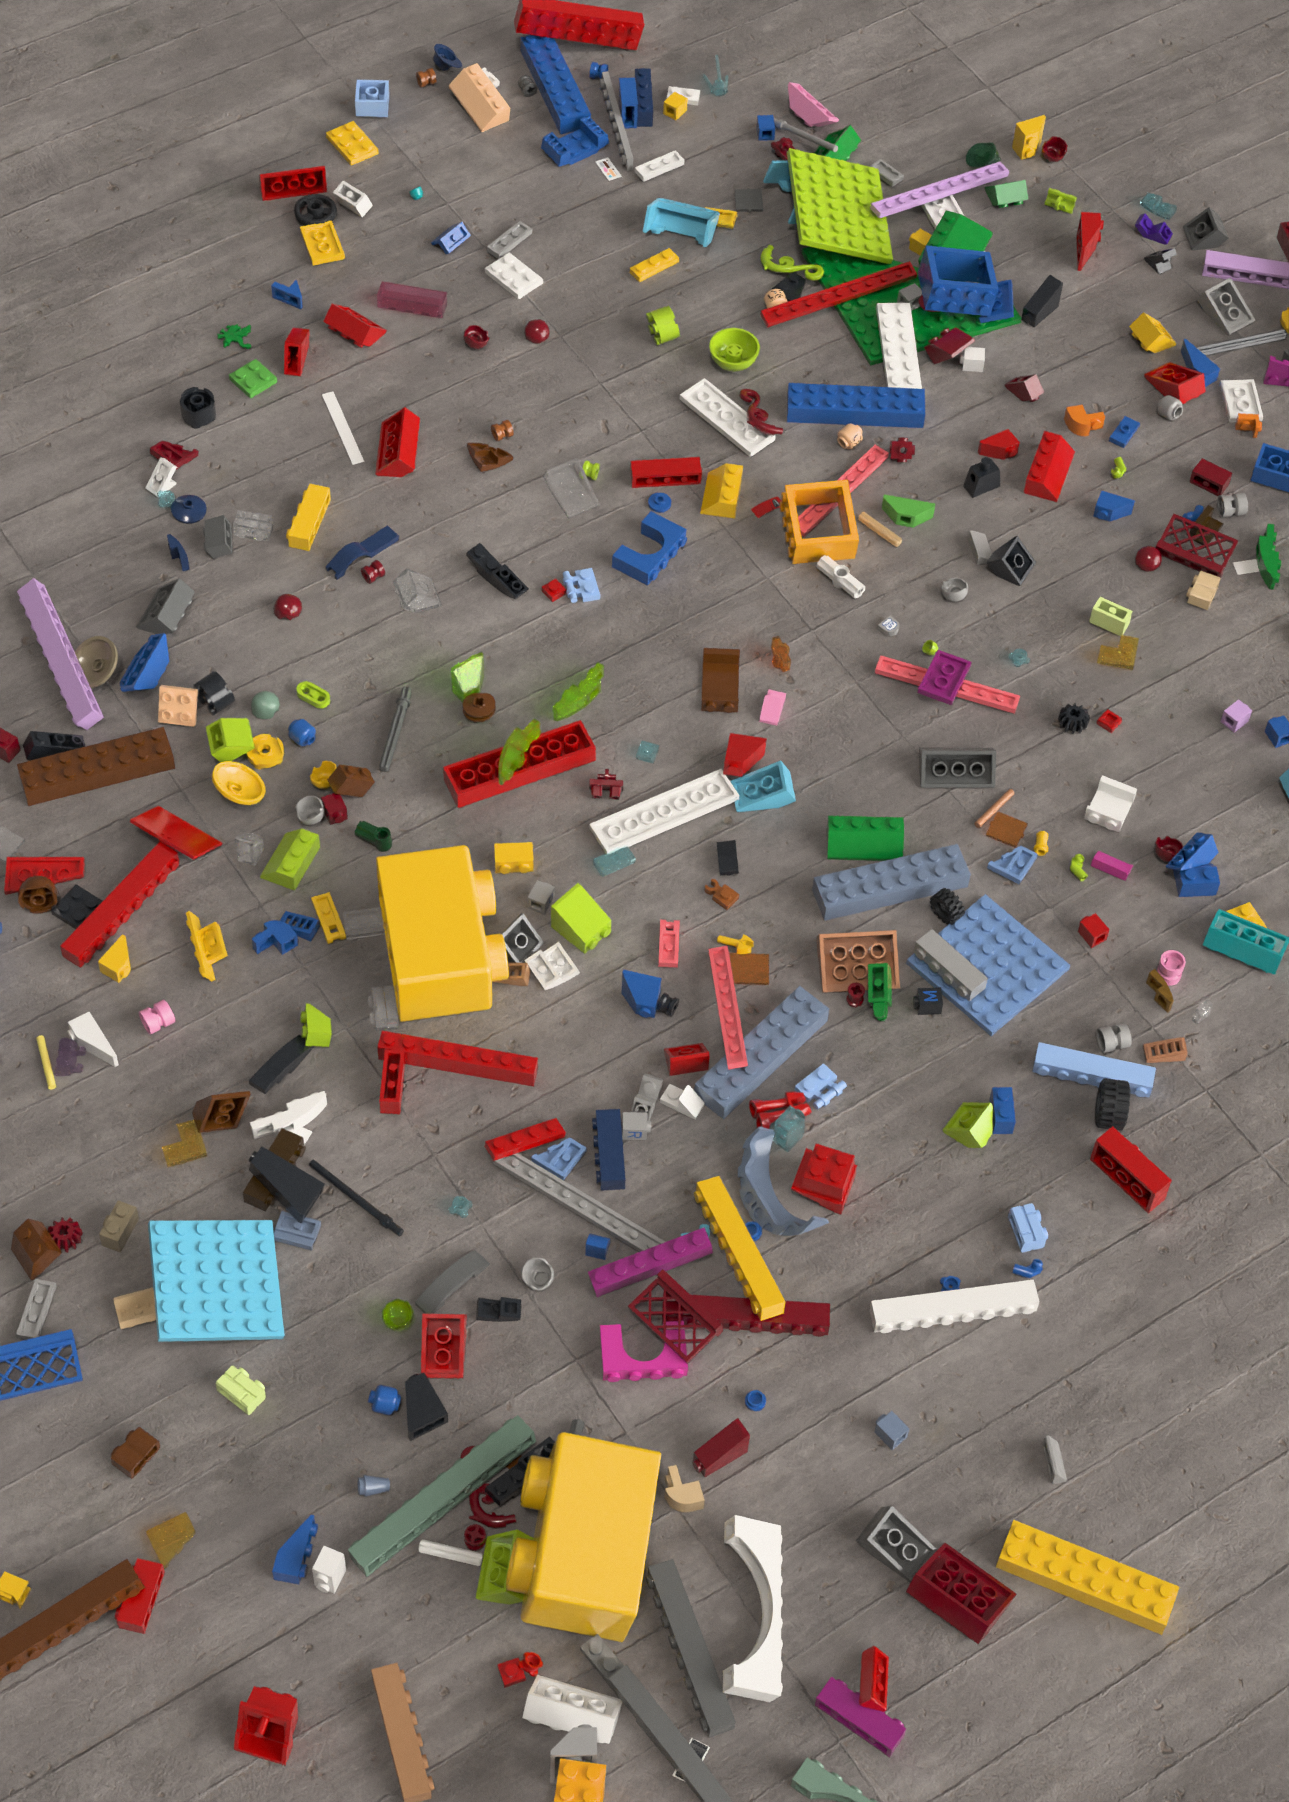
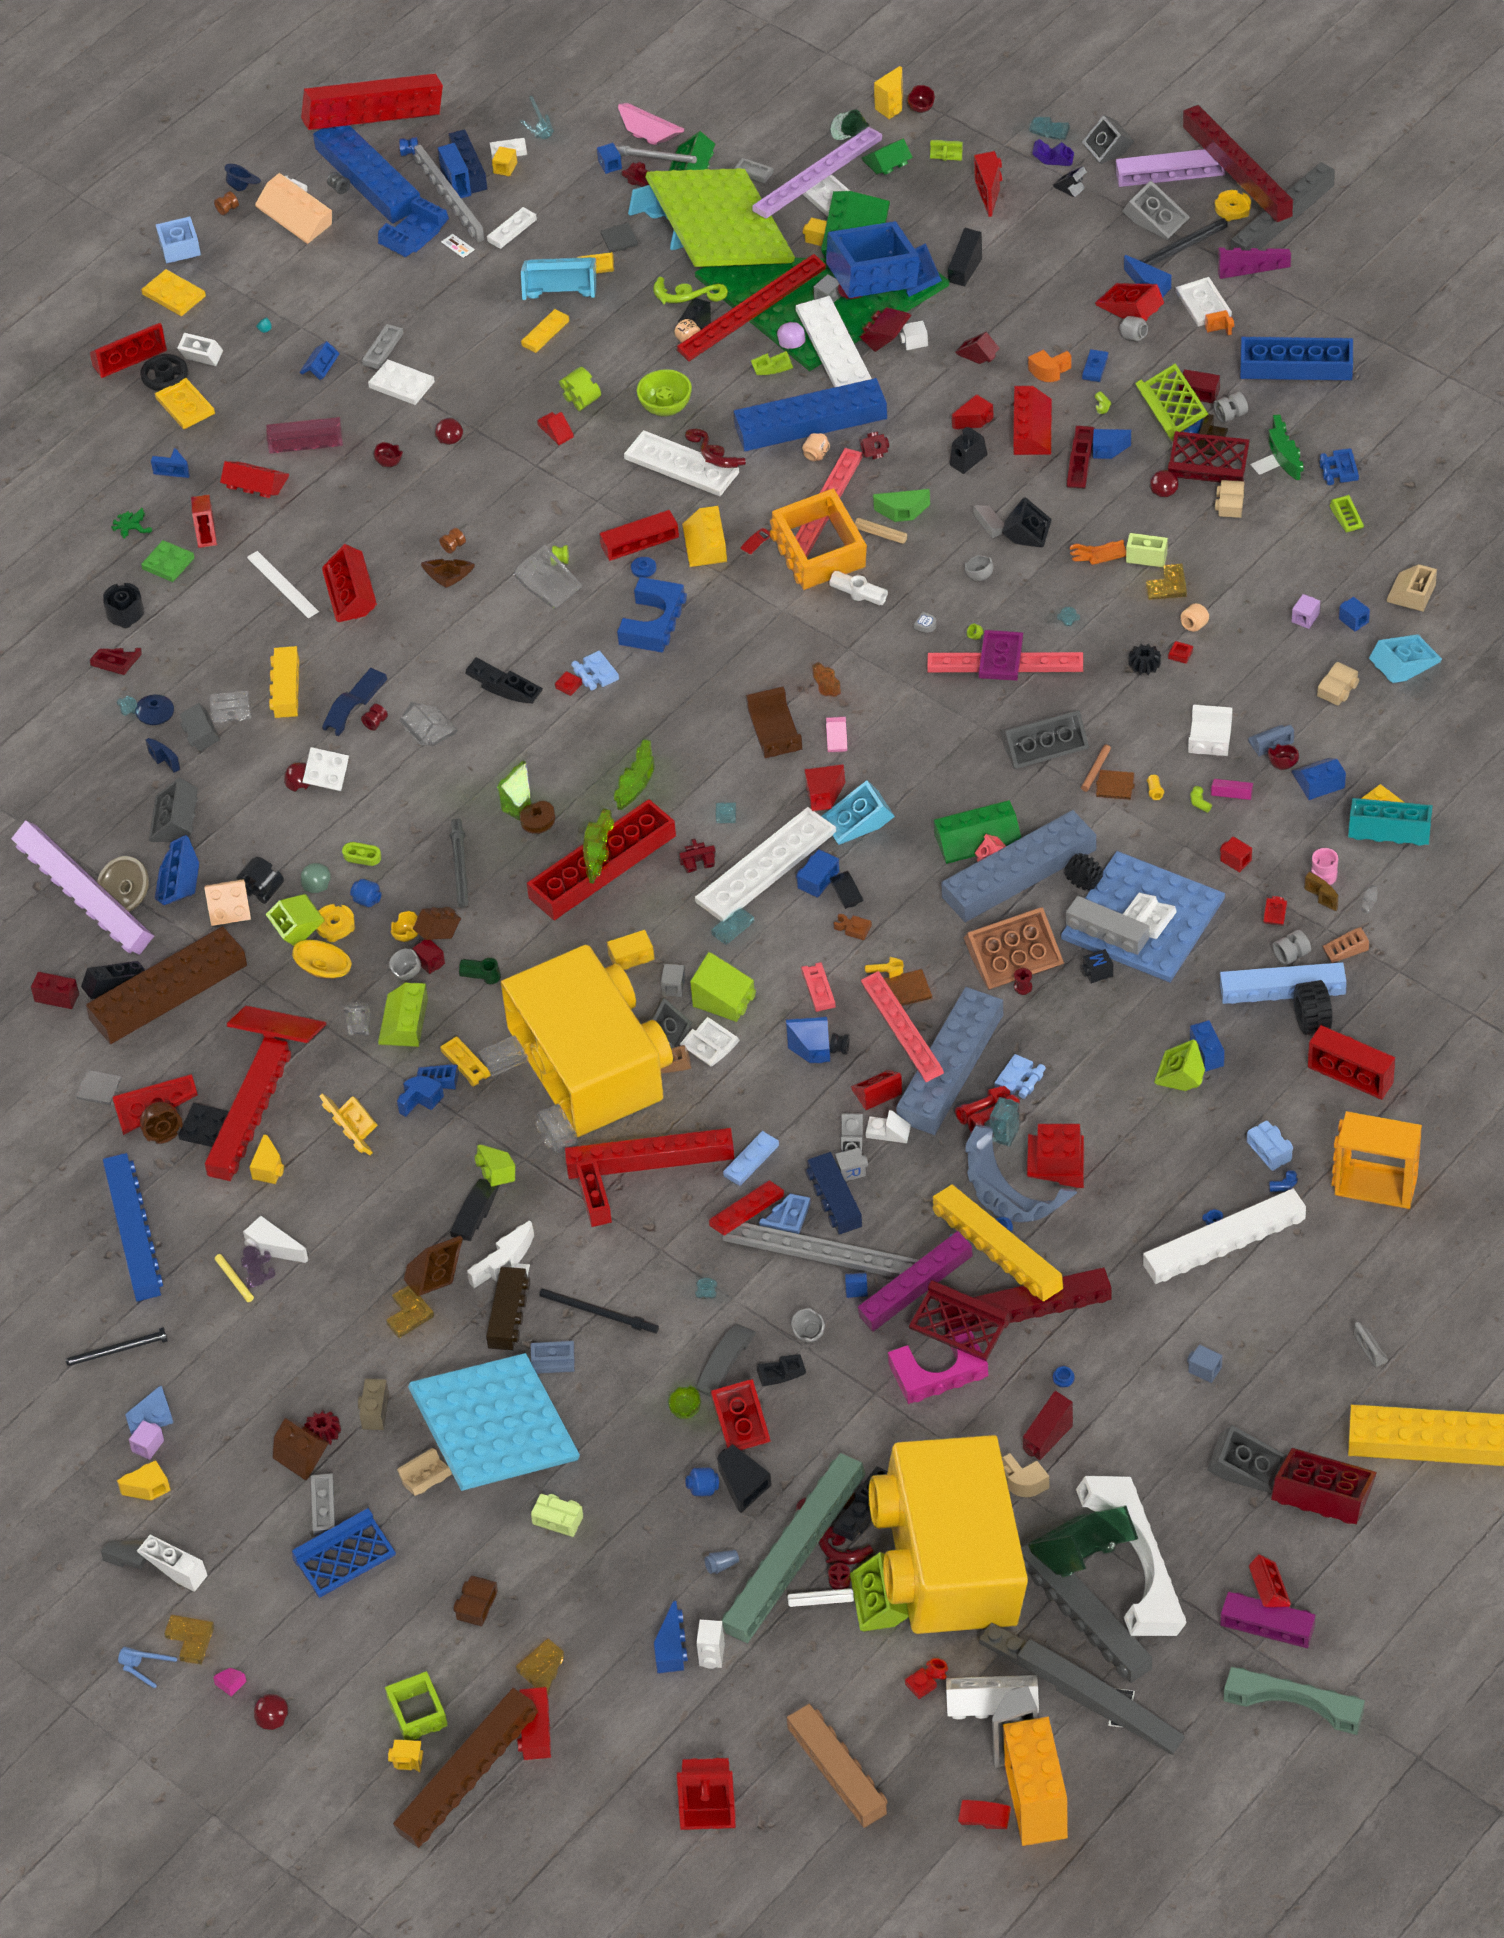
camera: 10 degrees left, 5 degrees down
(40, 1521) = (410, 1688): none -> lime window
(156, 1017) = (330, 1202): bright pink wheel -> none
(161, 477) = (114, 685): white slope -> none
(286, 1182) = (526, 1312): black slope -> none
(311, 607) = (325, 769): none -> white hinge
(548, 1090) = (751, 1158): none -> light blue plate
(630, 354) = (556, 427): none -> red slope
(707, 833) = (817, 873): none -> blue brick
(708, 1574) = (1082, 1536): none -> clear green windscreen
(834, 350) = (765, 366): none -> lime slope
(864, 329) = (791, 335): none -> lavender hair
(870, 856) = (989, 846): none -> coral brick
(880, 989) = (1046, 968): green hinge -> none
(994, 965) = (1151, 912): none -> white slope
(1014, 864) = (1135, 814): medium blue wing -> none
(1067, 607) = (1099, 553): none -> orange arm
(1081, 513) = (1080, 457): none -> dark red slope
(1110, 997) = (1275, 911): none -> red bracket
(1120, 1278) = (1373, 1180): none -> light orange window
(1132, 692) = (1194, 617): none -> light nougat head
(1151, 334) = (1088, 259): yellow slope -> none
(1164, 827) = (1270, 738): none -> sand blue panel
(1167, 489) = (1157, 405): none -> lime fence
(1196, 852) = (1313, 750): blue slope -> none
(1242, 794) = (1338, 683): none -> tan brick

